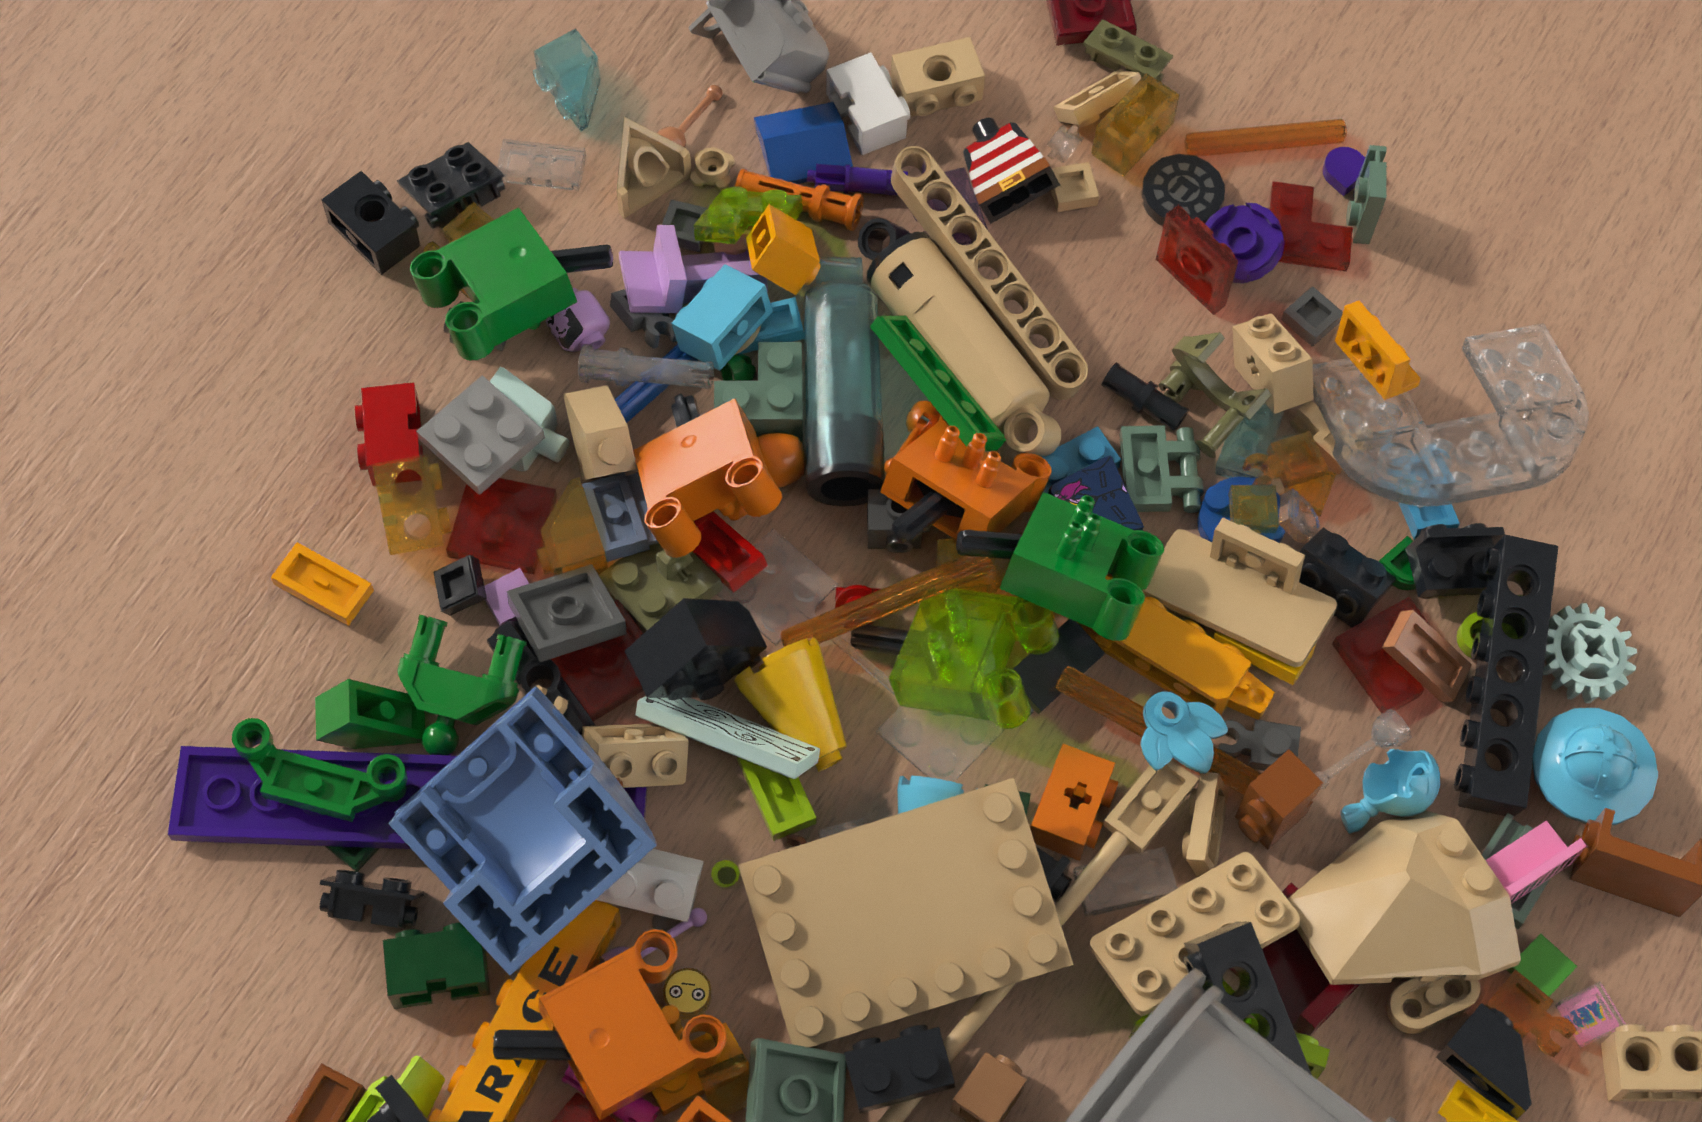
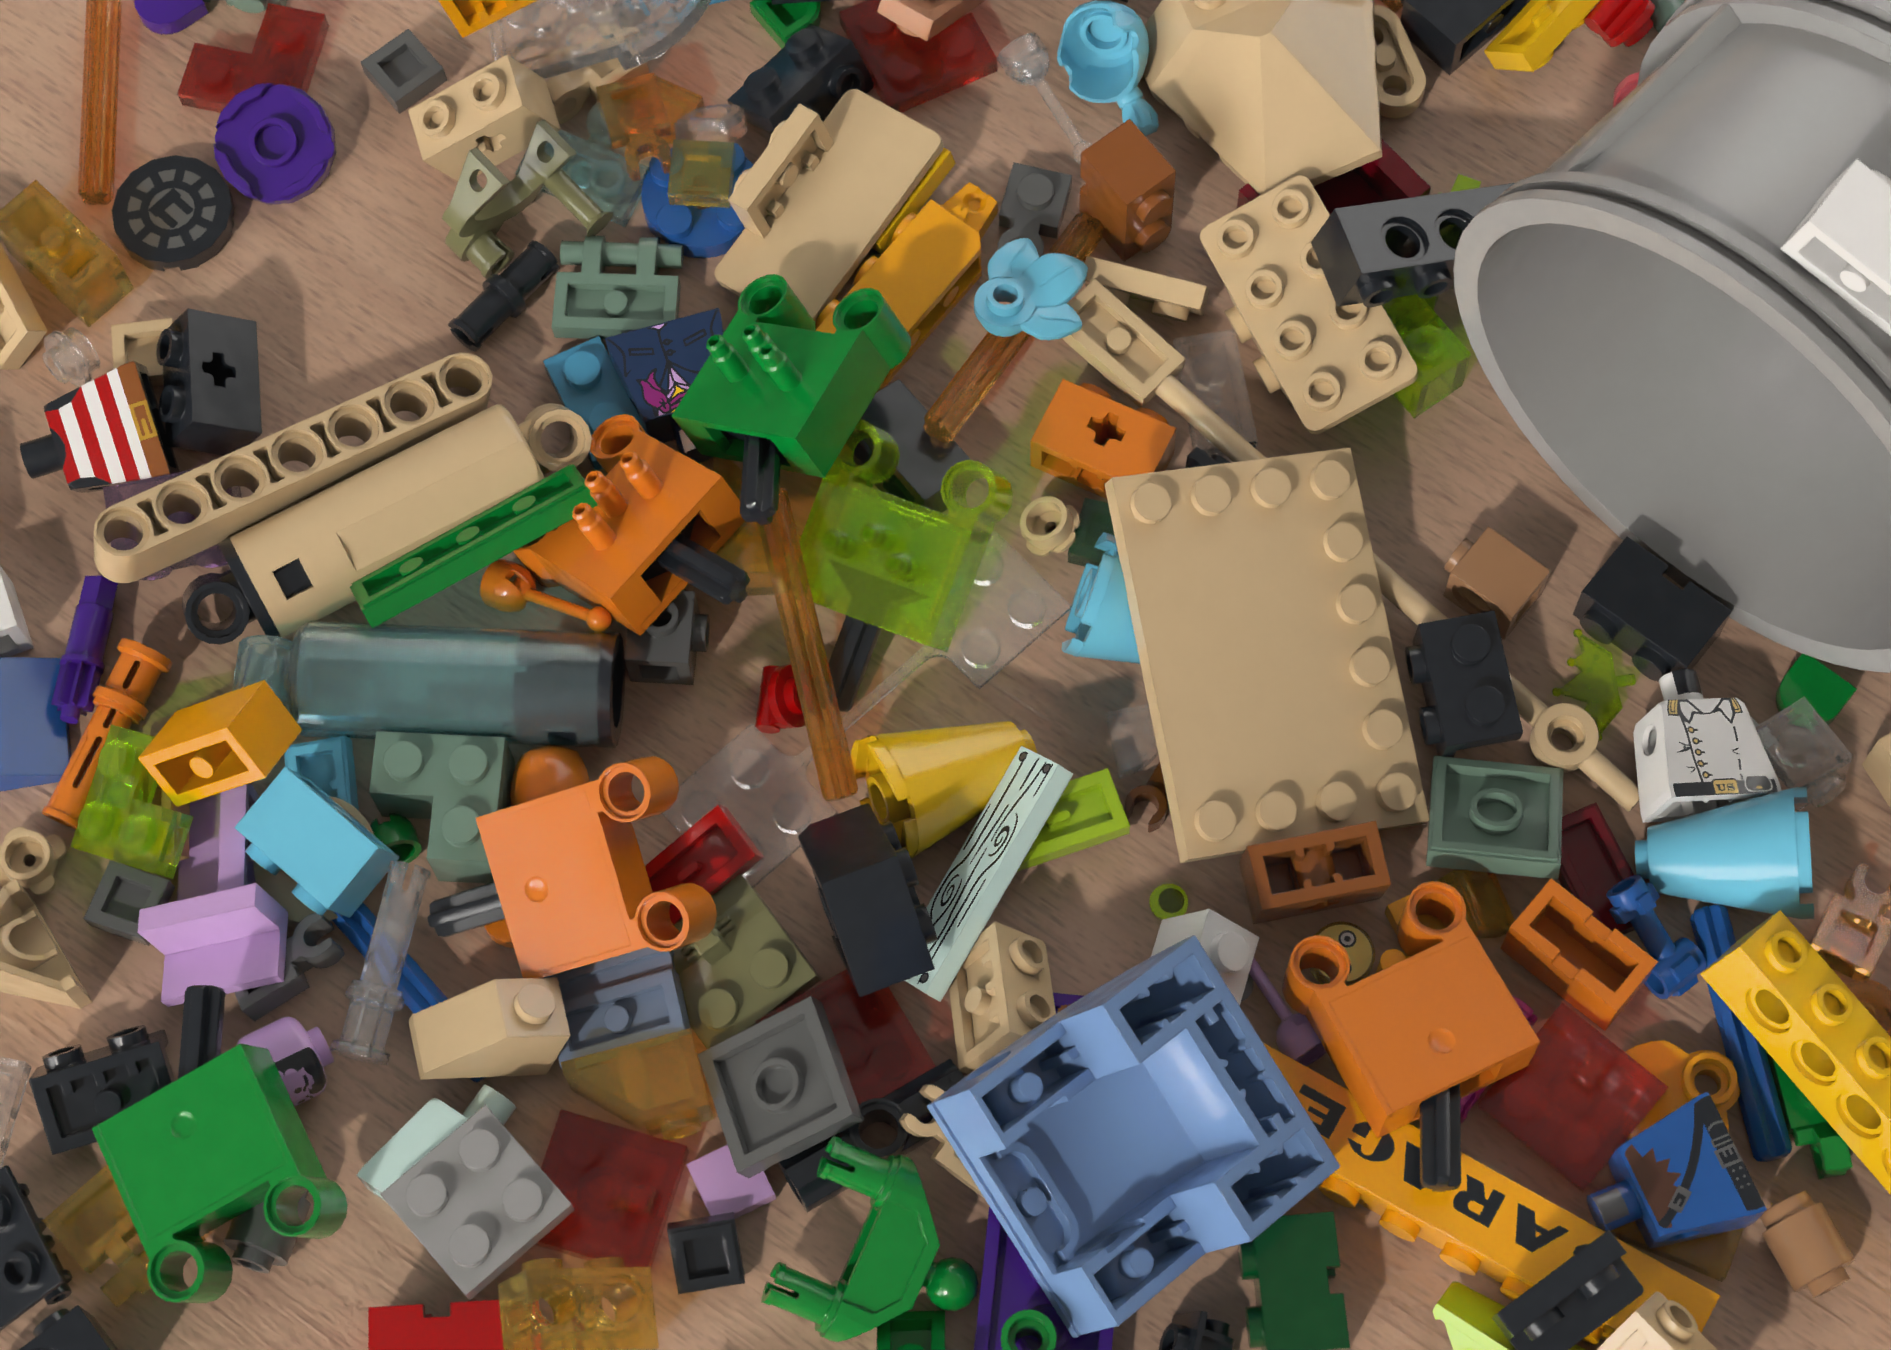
camera: 80 degrees left, 5 degrees up
(561, 217) = (87, 1088): none -> black bracket
(740, 962) = (1314, 872): none -> dark orange brick
(1004, 764) = (1040, 517): none -> tan plate
(1075, 226) = (210, 382): none -> black brick
(1197, 259) = (306, 194): clear red hinge -> none

